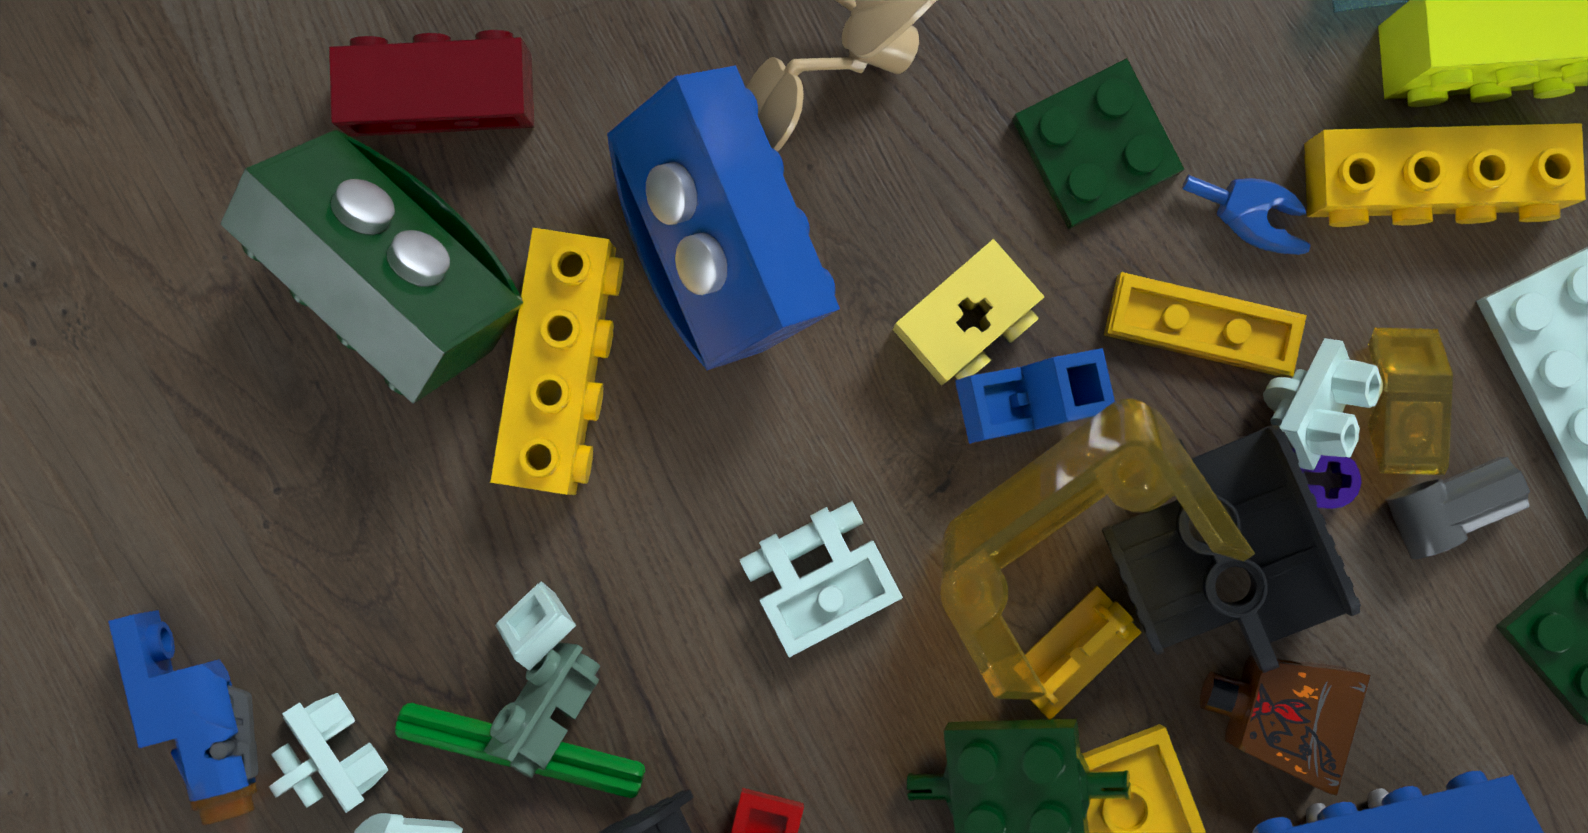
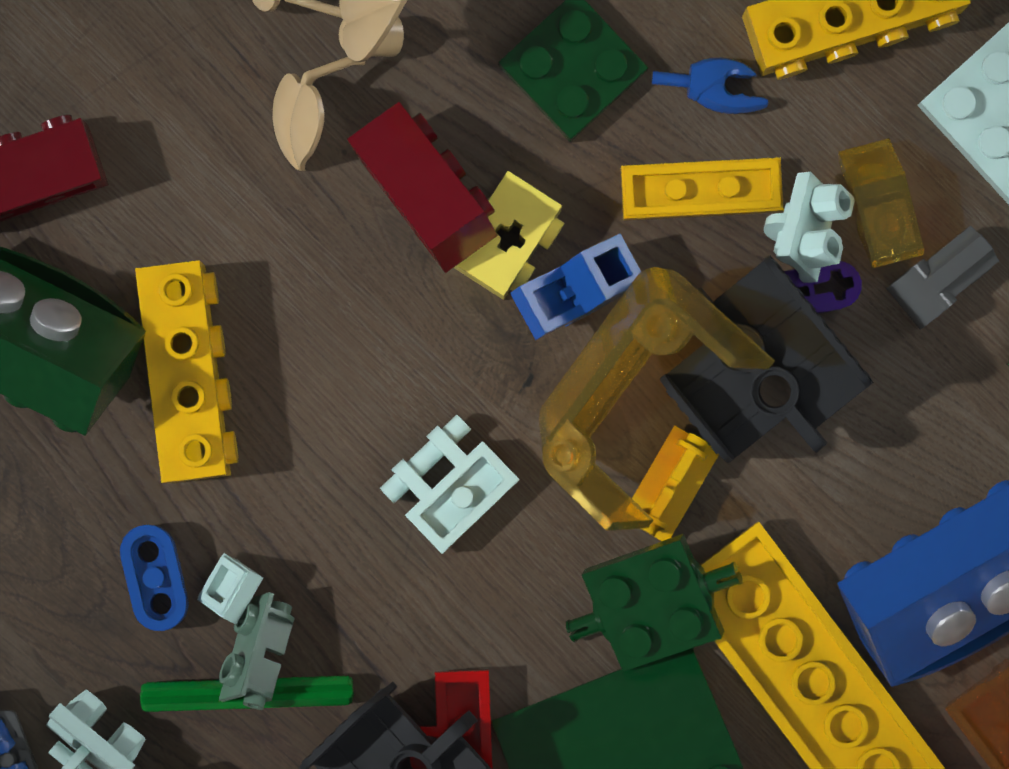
camera: 25 degrees left, 0 degrees up
(448, 585) = (155, 577): none -> blue plate
(717, 219) = (282, 221): blue piece -> none
(893, 229) = (425, 185): none -> dark red brick
(1291, 716) = (855, 483): reddish brown torso -> none

